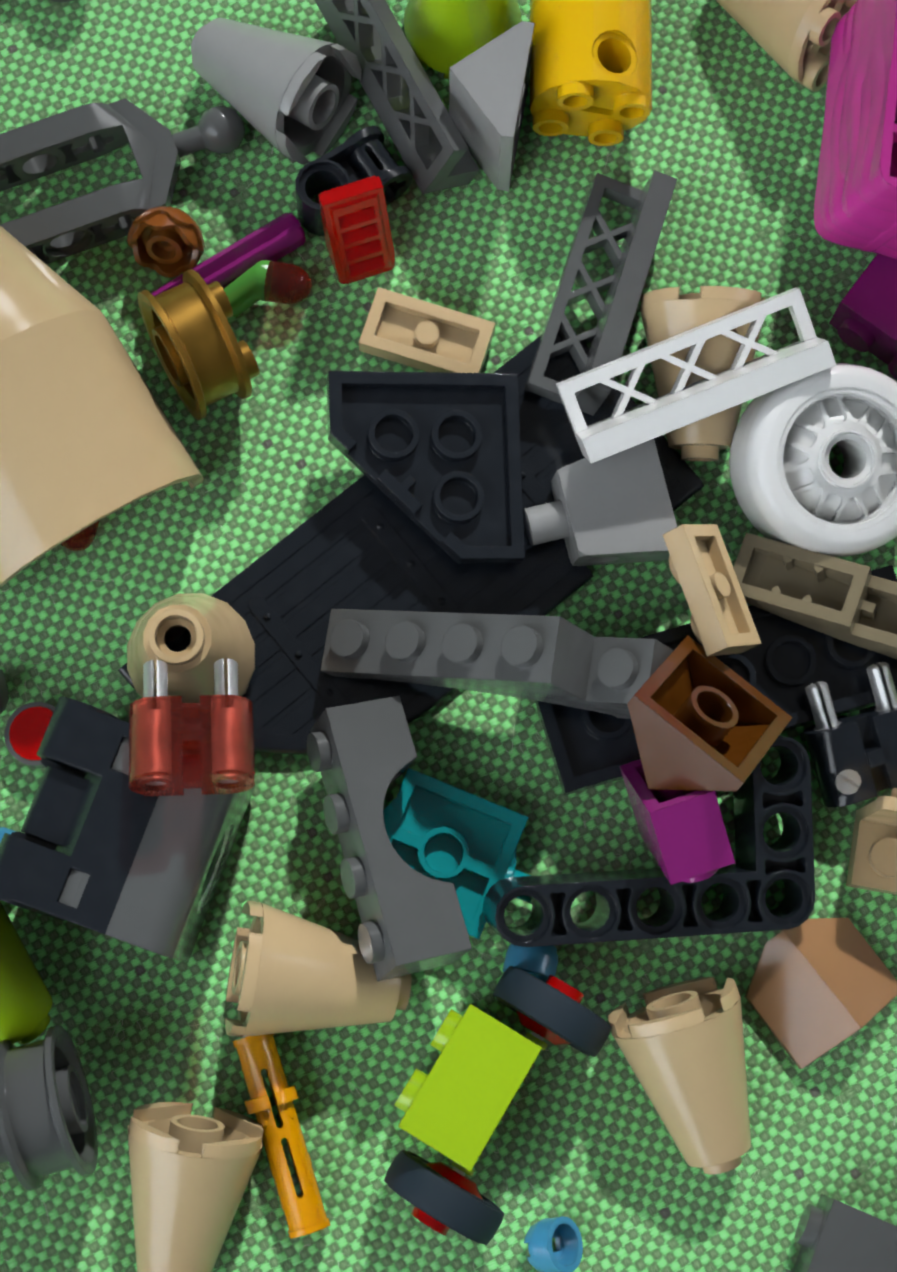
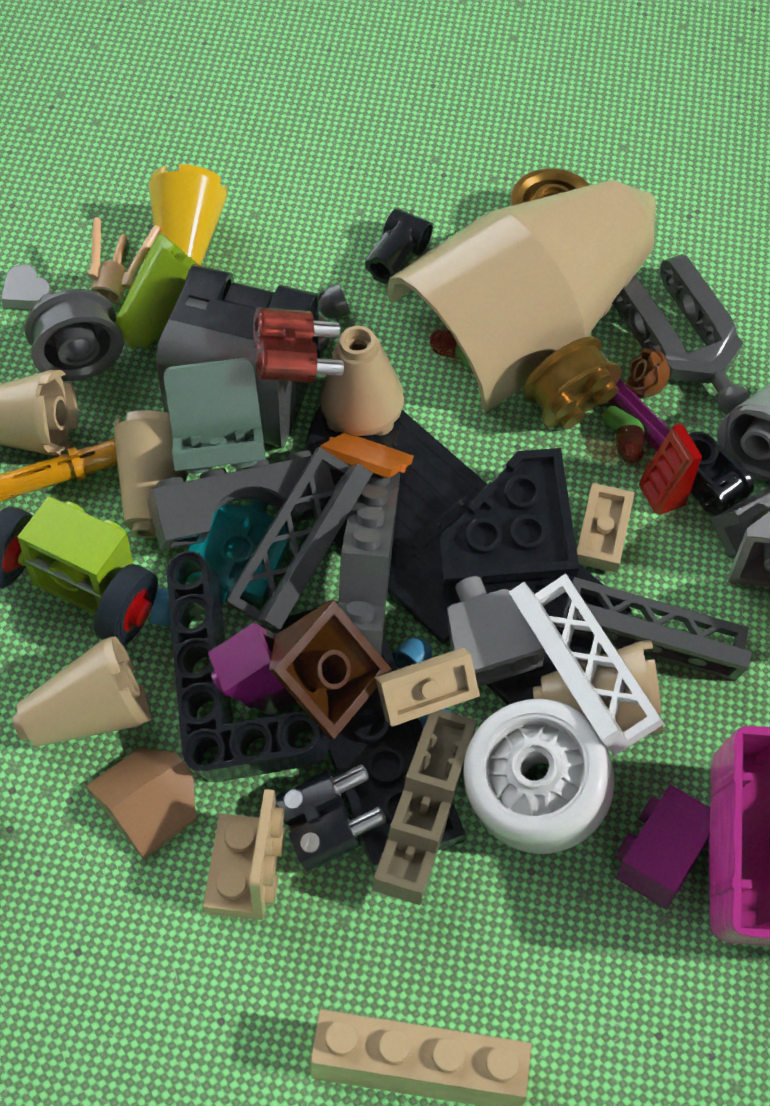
camera: 85 degrees right, 20 degrees down
(286, 866) = (214, 415): none -> sand green bracket
(308, 653) = (369, 454): none -> orange piece
(469, 732) = (313, 546): none -> dark grey fence
(622, 612) = (412, 652): none -> dark azure hinge

